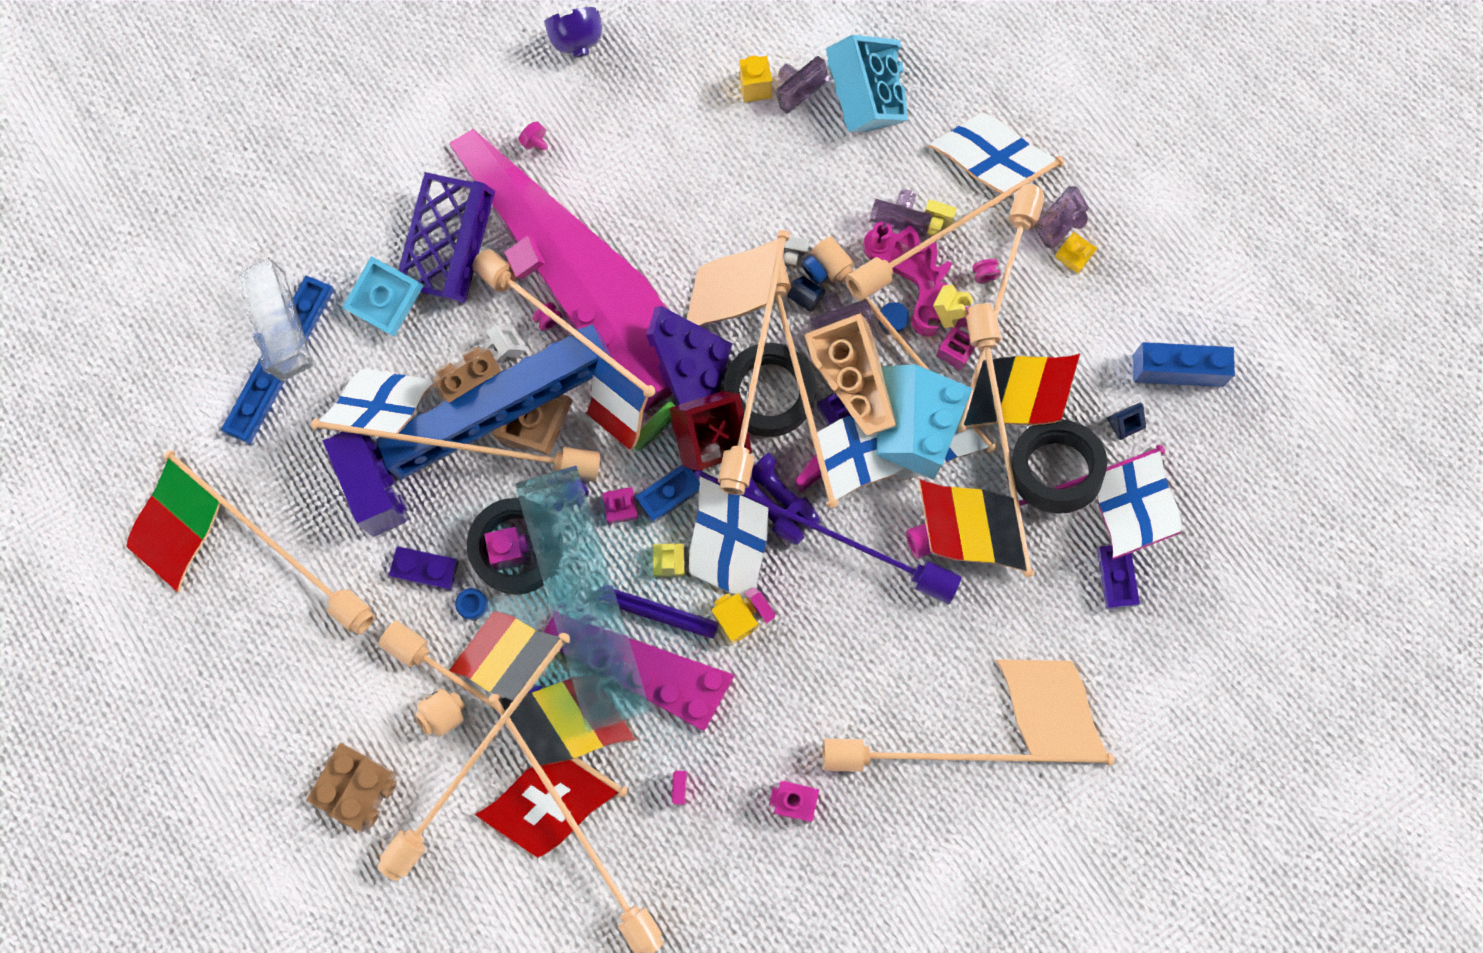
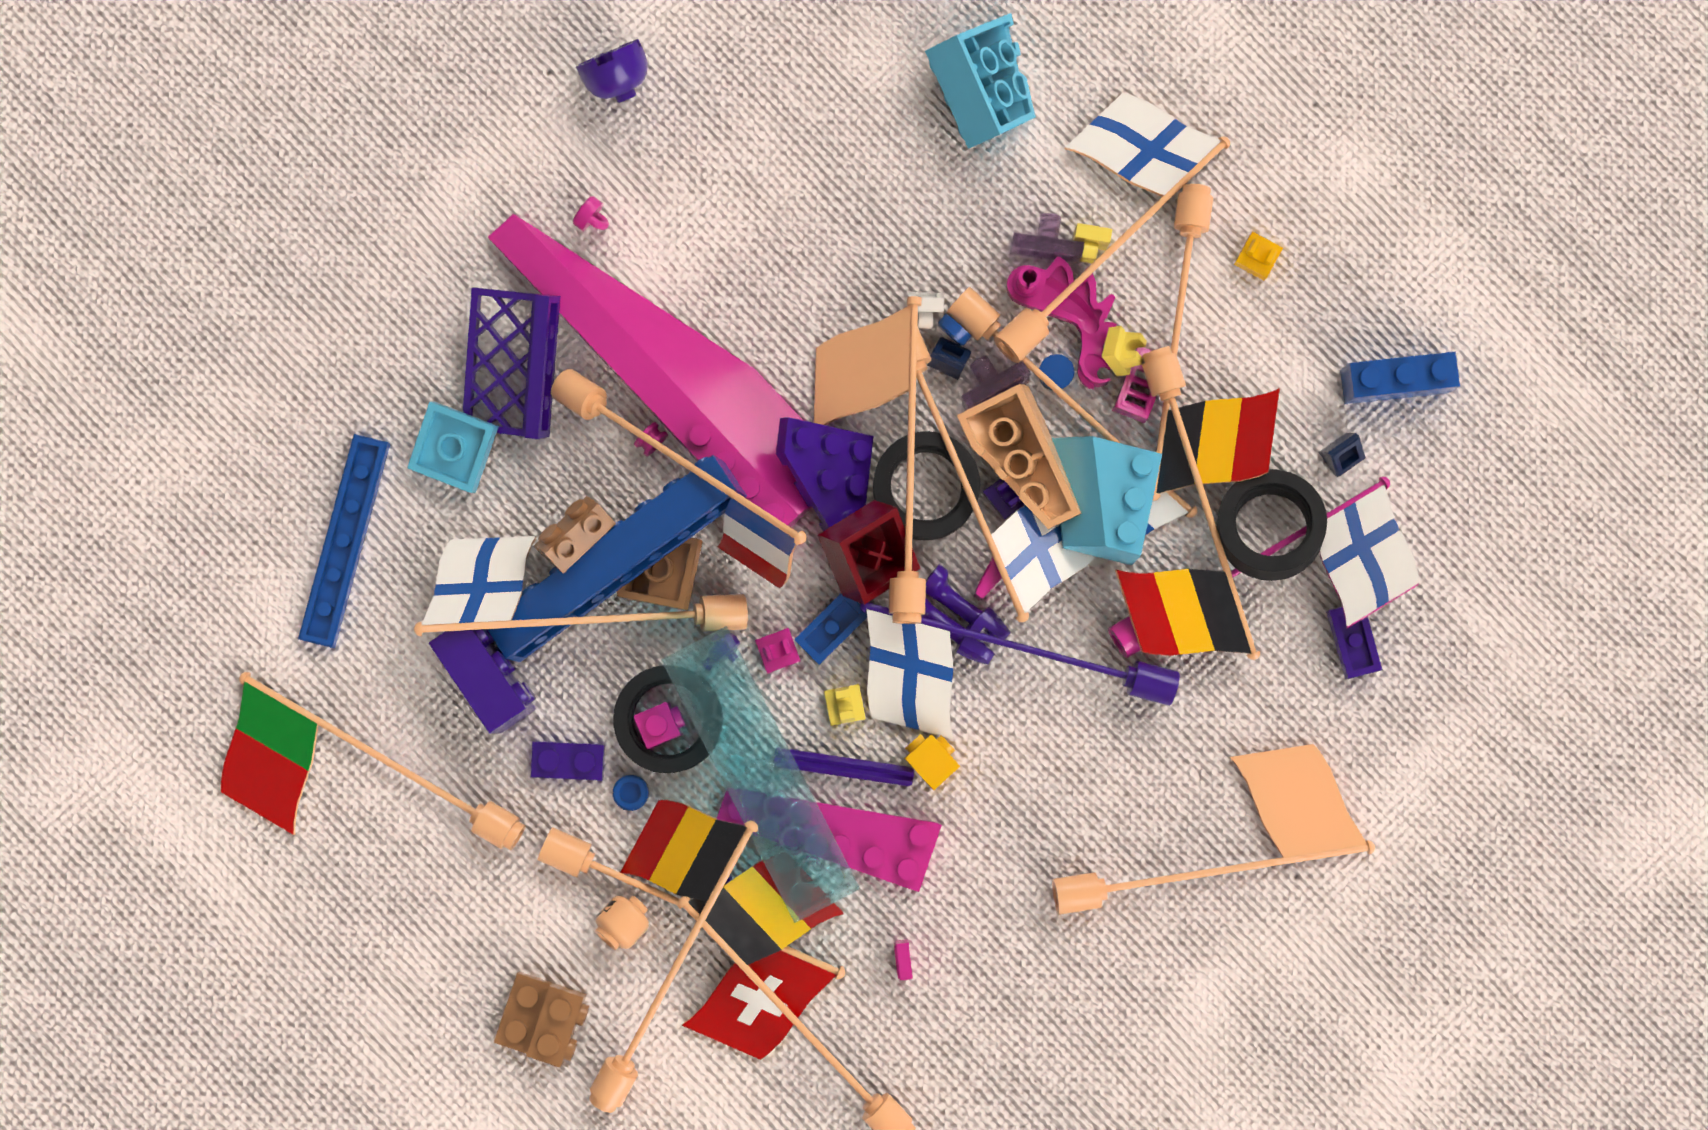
camera: 15 degrees left, 10 degrees up
(274, 320) = (333, 499): clear brick -> none
(505, 341) = (608, 478): white tile -> none
(524, 257) = (613, 377): tile -> none
(654, 427) = (805, 551): bright green tile -> none
(755, 78) = (844, 96): yellow brick -> none
(760, 604) = (958, 741): dark pink tile -> none
(794, 801) = (1031, 952): dark pink brick -> none
(801, 83) = (899, 93): clear purple tile -> none
(986, 270) = (1156, 298): dark pink bush -> none
(1063, 215) = (1237, 216): clear purple tile -> none

